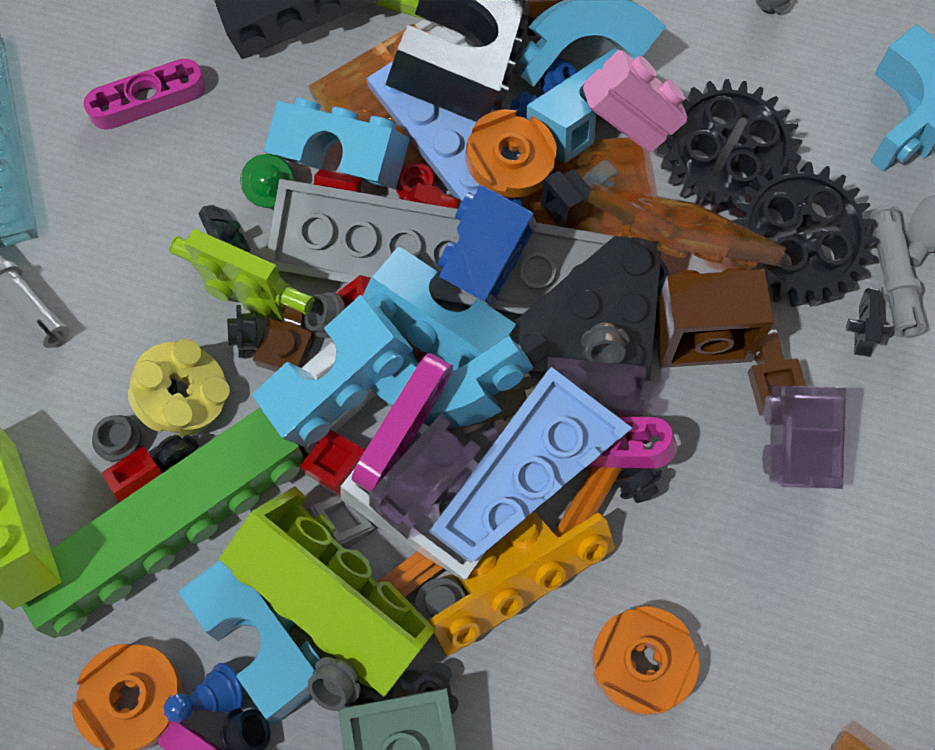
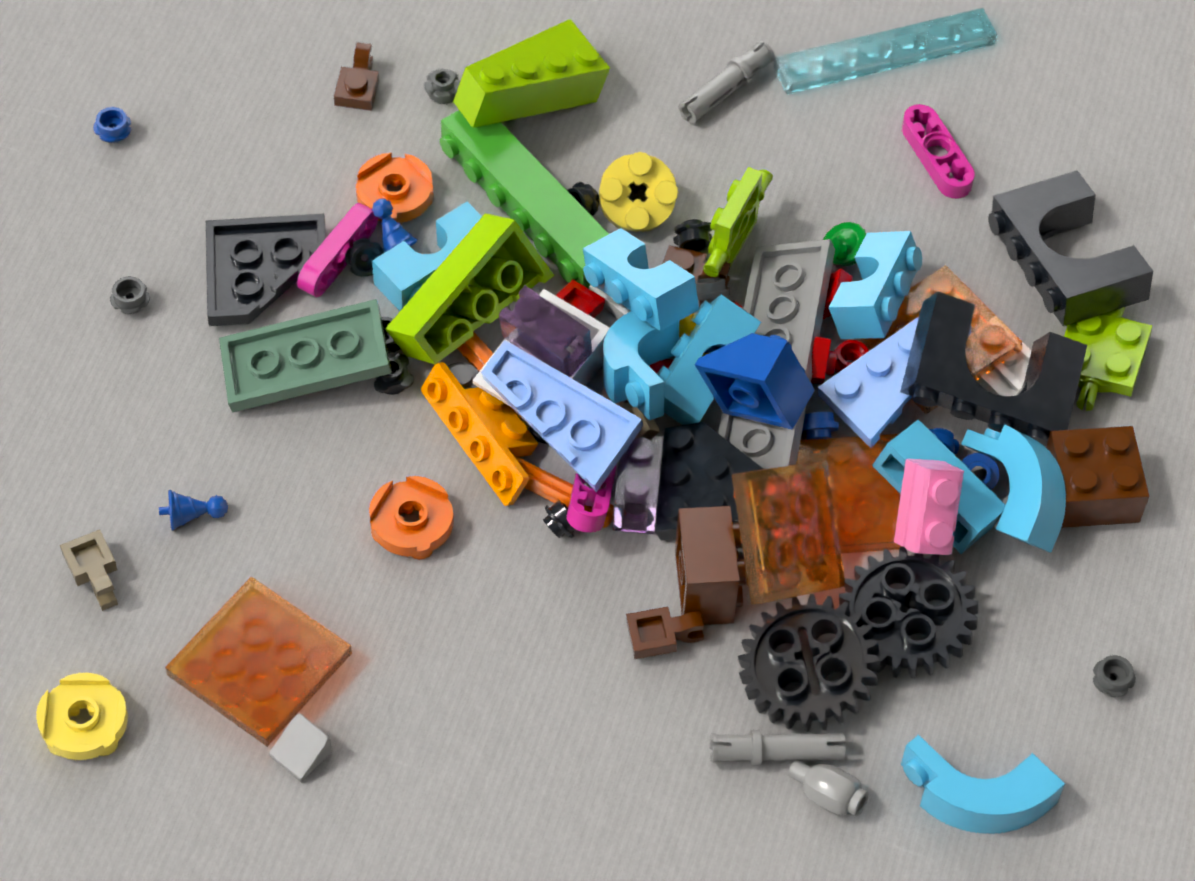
camera: 85 degrees right, 10 degrees down
(116, 437) = (596, 160): dark grey plate -> none
(131, 473) = (565, 170): red plate -> none
(220, 225) = (792, 216): black piece -> none
(333, 683) = (394, 294): dark grey plate -> none
(403, 421) = (601, 318): dark pink beam -> none
(506, 176) = (860, 428): orange plate -> none
(567, 194) = (839, 460): black piece -> none
(605, 343) = (676, 478): dark grey plate -> none
(805, 436) = (597, 635): clear purple brick -> none
(869, 327) = (714, 714): black piece -> none

